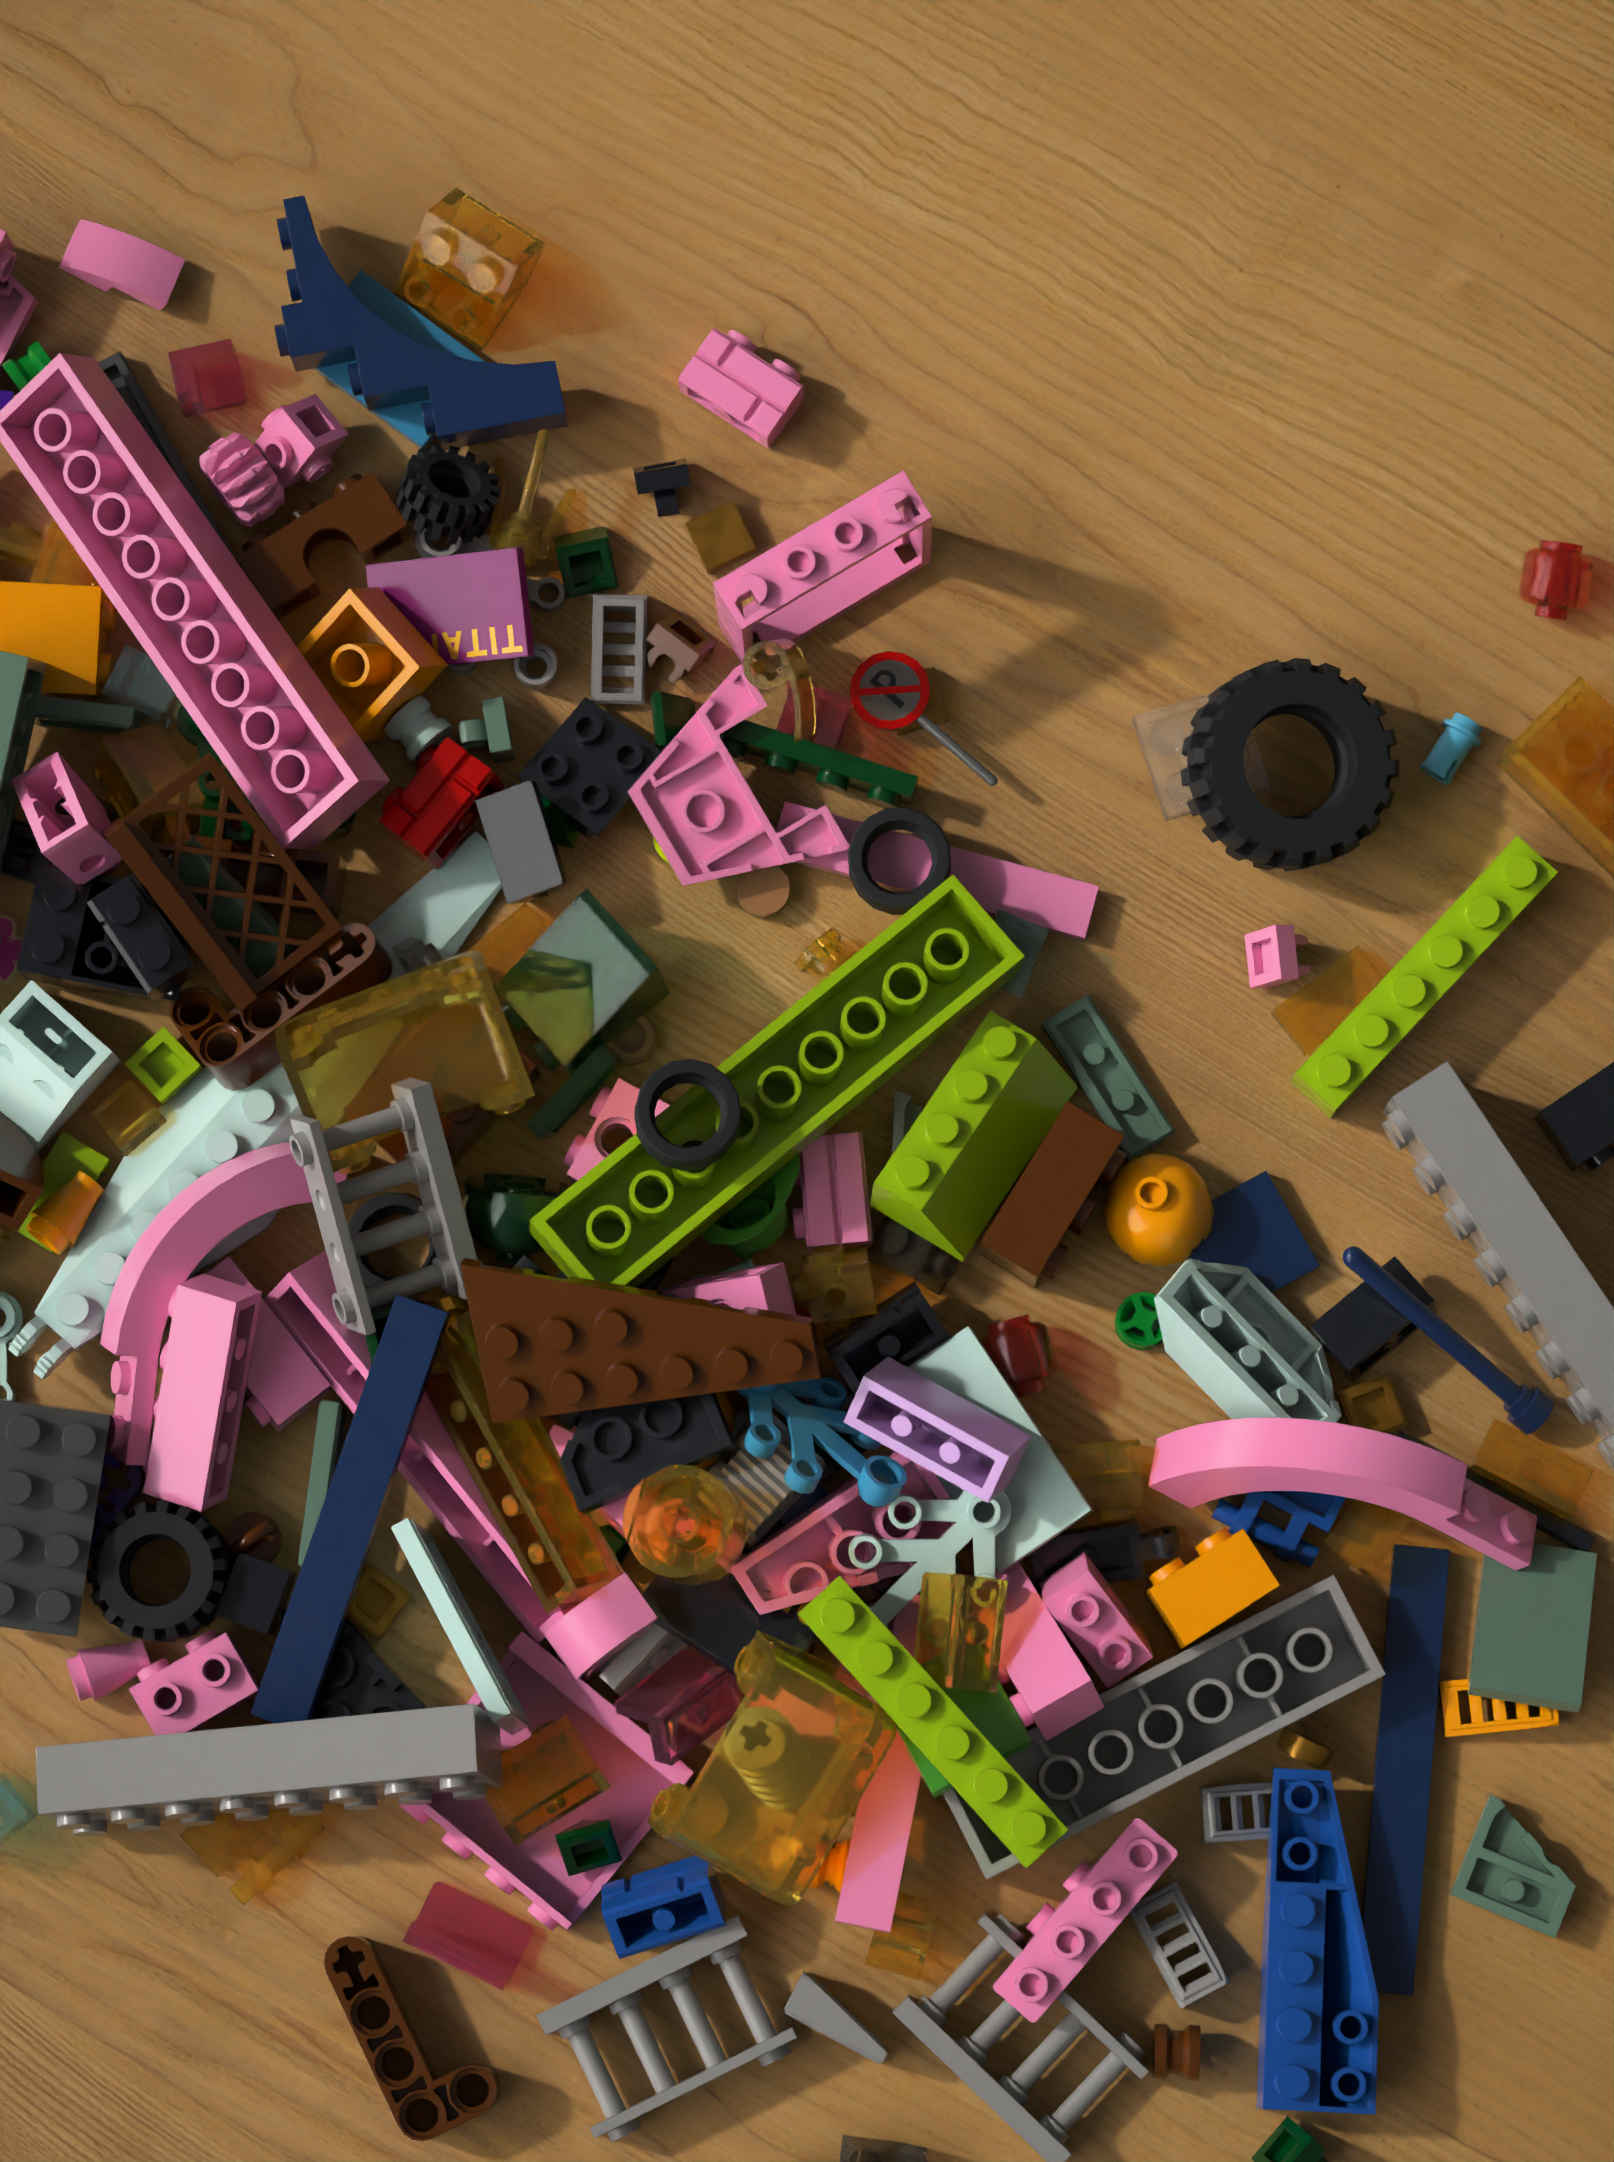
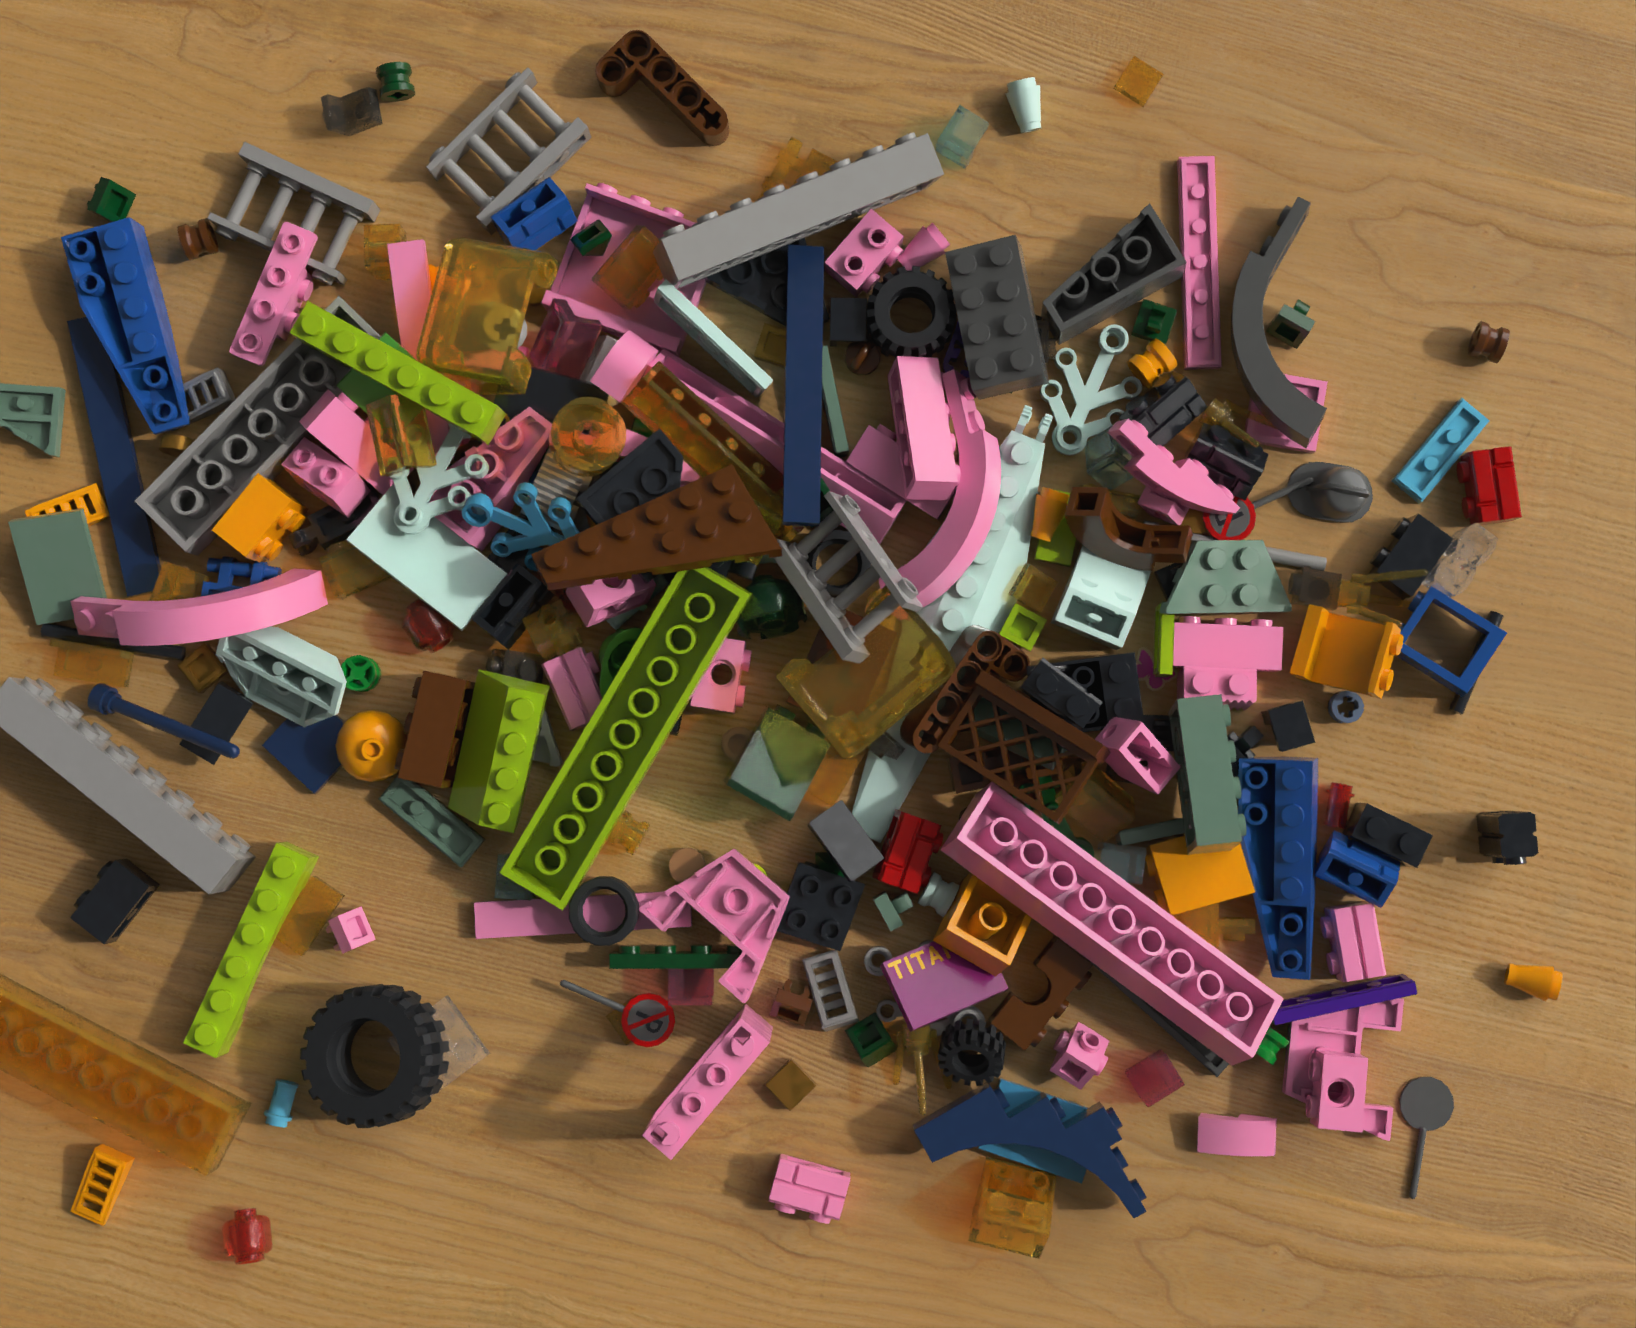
camera: 160 degrees right, 5 degrees up
(242, 479) = (1107, 1017): bright pink gear -> none
(469, 1935) = (648, 164): clear pink panel -> none
(575, 1092) = (758, 695): clear green tile -> none
(663, 480) = (839, 1108): black tile -> none
(669, 716) = (780, 954): dark green slope -> none
(681, 1073) = (647, 707): black tyre -> none
(792, 672) = (708, 1006): clear yellow panel -> none
(821, 2011) = (420, 190): light grey slope -> none
(937, 1429) = (454, 554): lavender brick -> none
(1199, 1987) = (195, 282): light grey slope -> none

